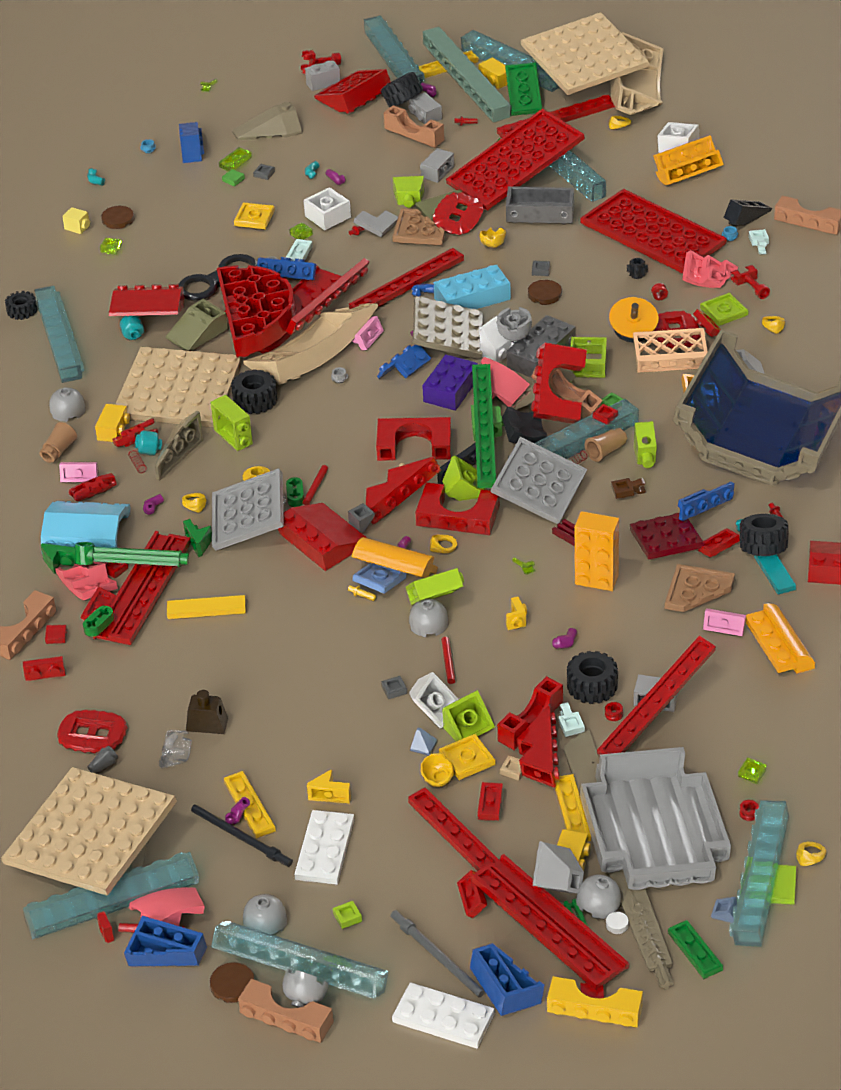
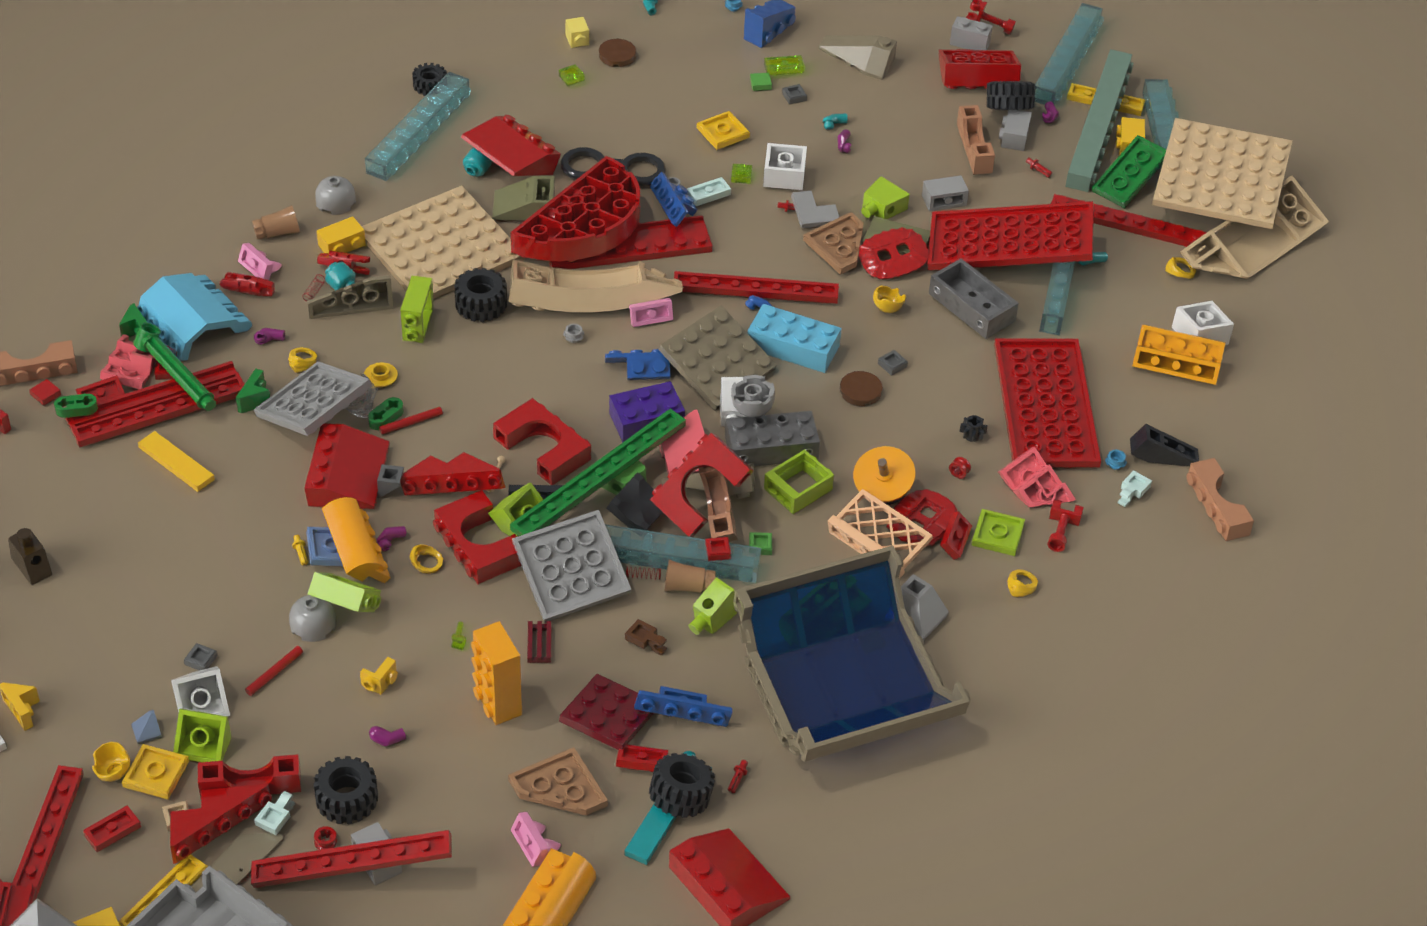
camera: 40 degrees right, 5 degrees up
(325, 298) = (662, 250): red plate -> none

